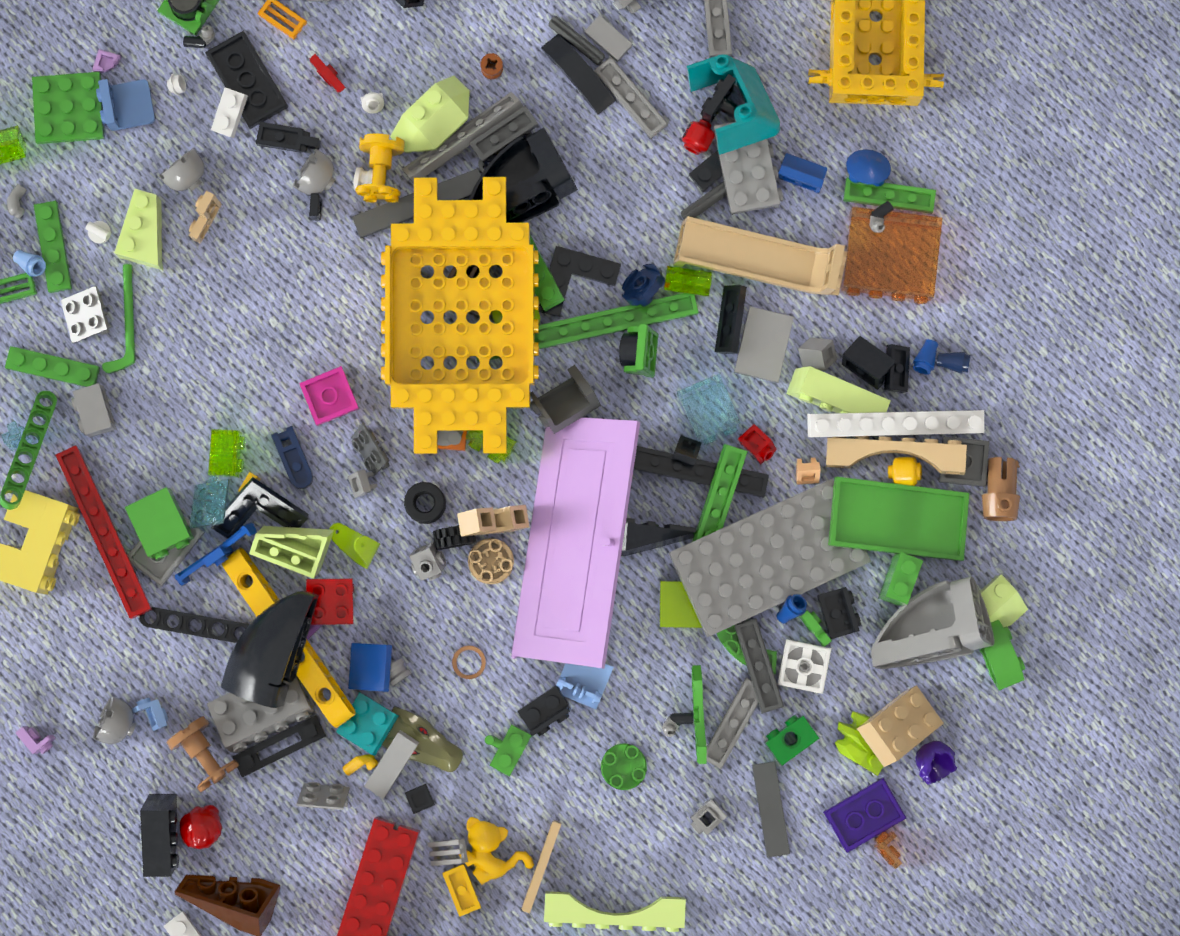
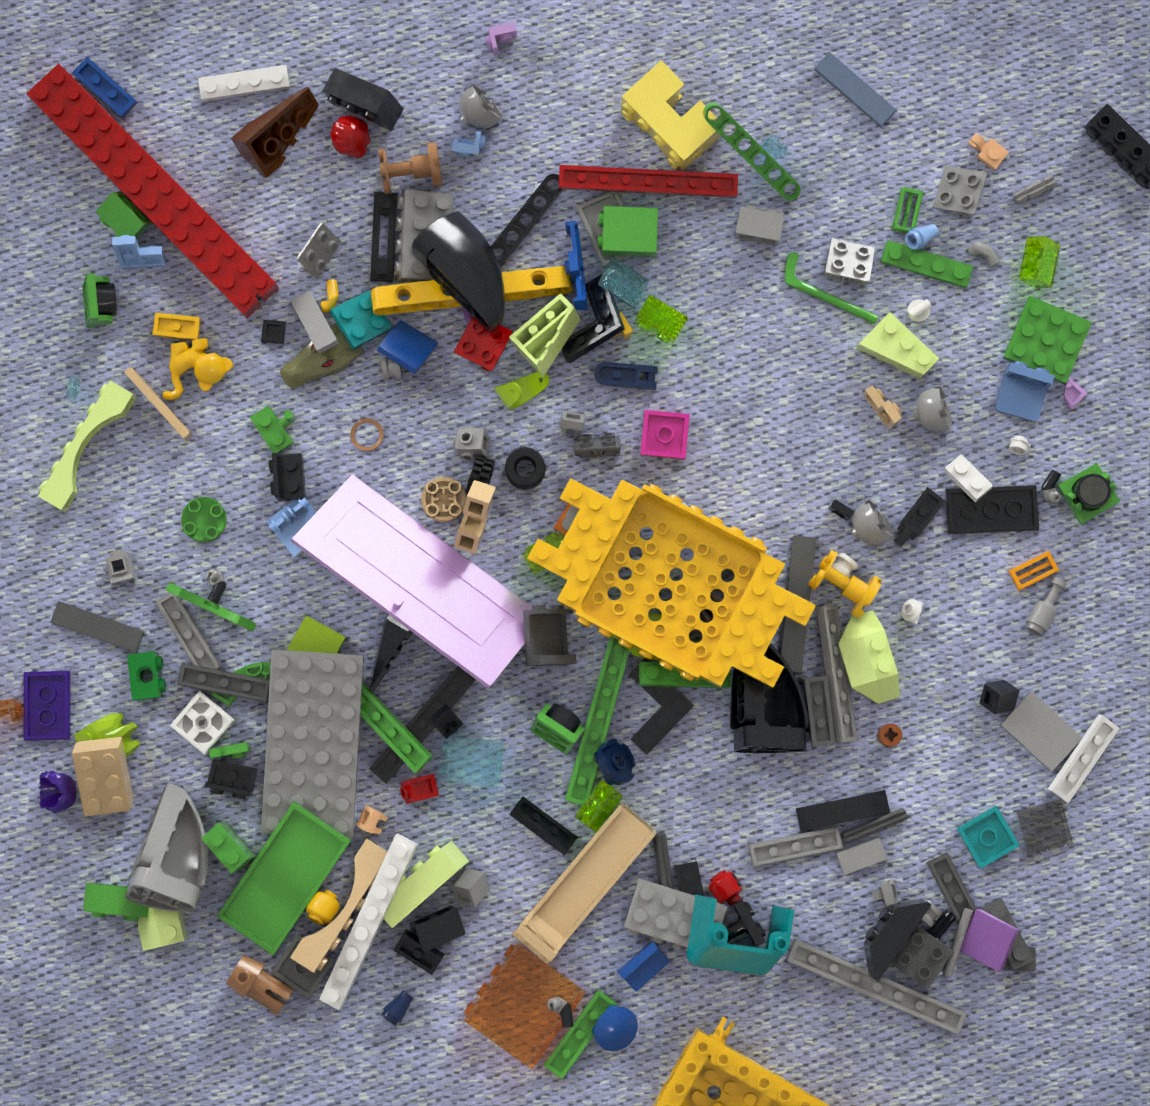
camera: 120 degrees right, 0 degrees up
(51, 367) = (818, 210): bright green plate -> none
(328, 73) = (958, 584): red plate -> none
(436, 853) = (206, 326): light grey tile -> none
(763, 344) = (505, 844): light grey tile -> none
(792, 608) = (257, 739): blue cone -> none
(925, 359) = (414, 984): blue cone -> none

